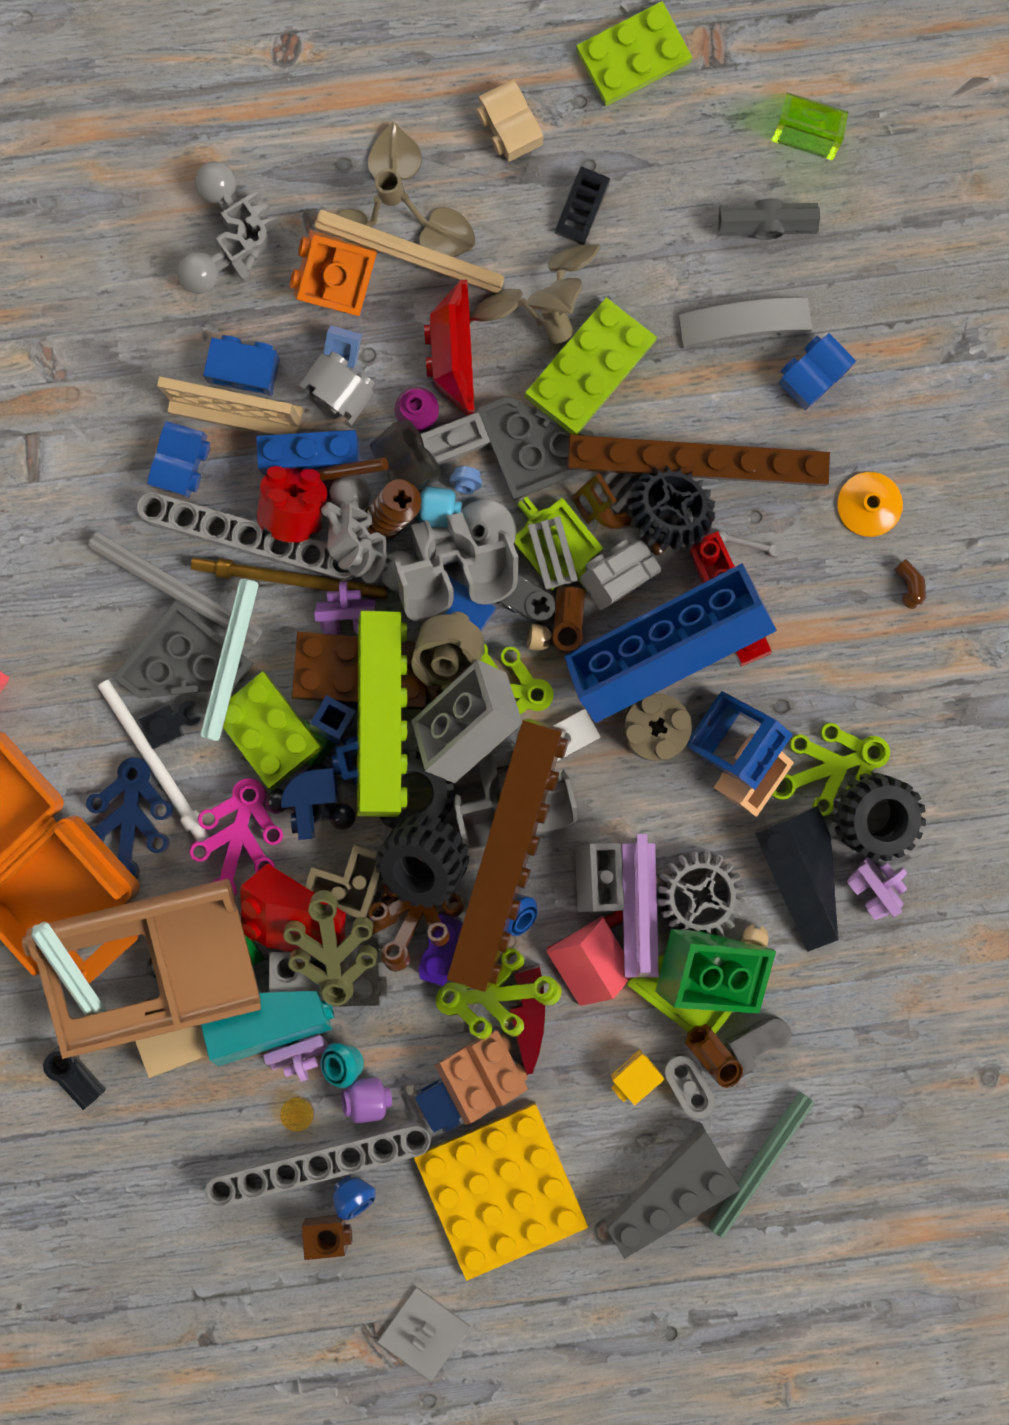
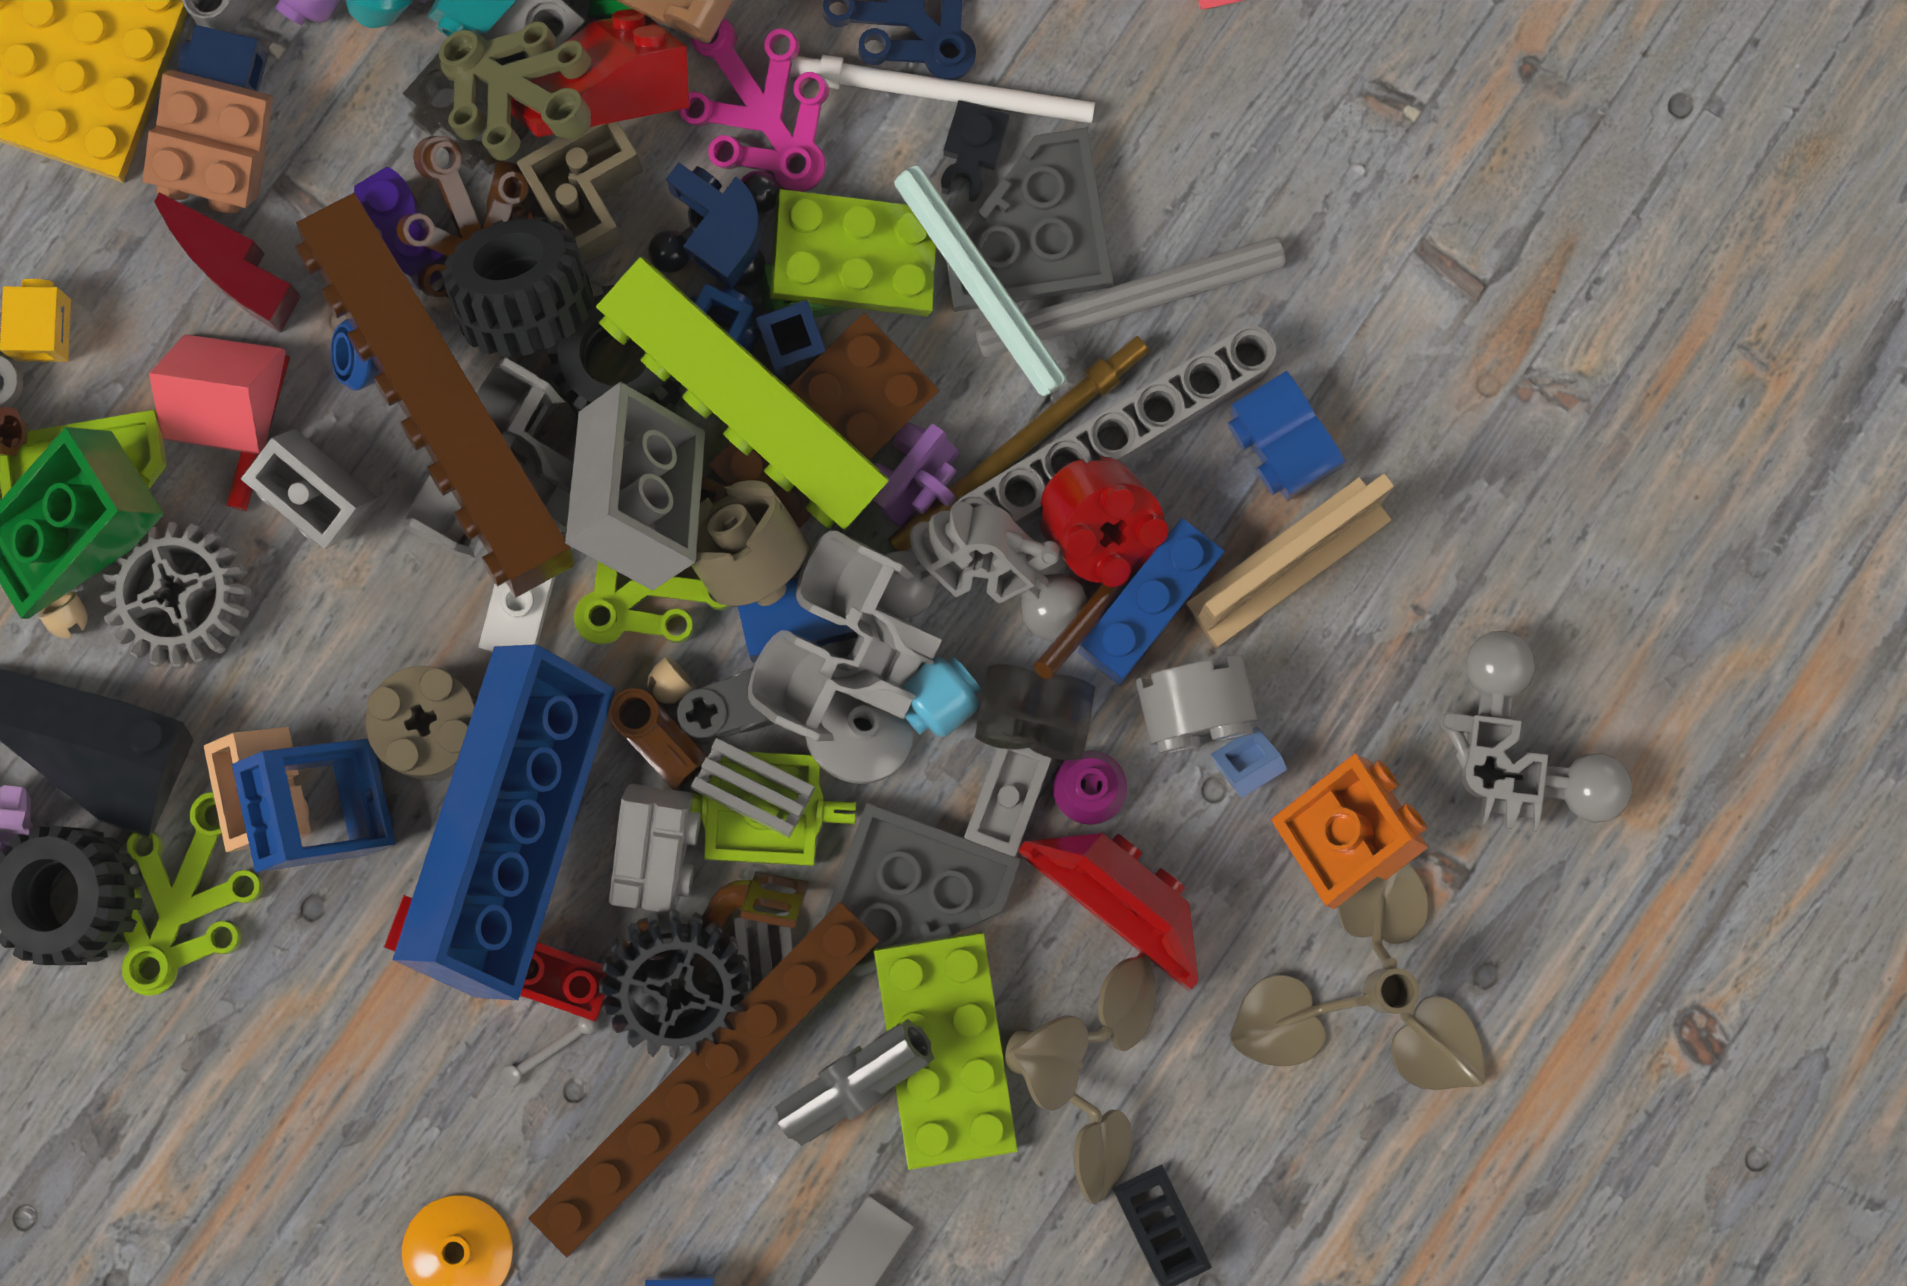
camera: 135 degrees right, 5 degrees down
(242, 365) = (1334, 617): blue brick -> none
(394, 508) = (982, 637): reddish brown piece -> none
(409, 251) = (1293, 951): tan axle -> none
(466, 479) = (944, 766): medium blue plate -> none
(492, 997) = (286, 234): lime plant -> none
(510, 121) = (1353, 1233): tan brick -> none
(640, 909) = (224, 502): lavender fence -> none
(641, 390) = (854, 1082): none -> dark grey piece
(915, 584) = (303, 1214): reddish brown arm -> none

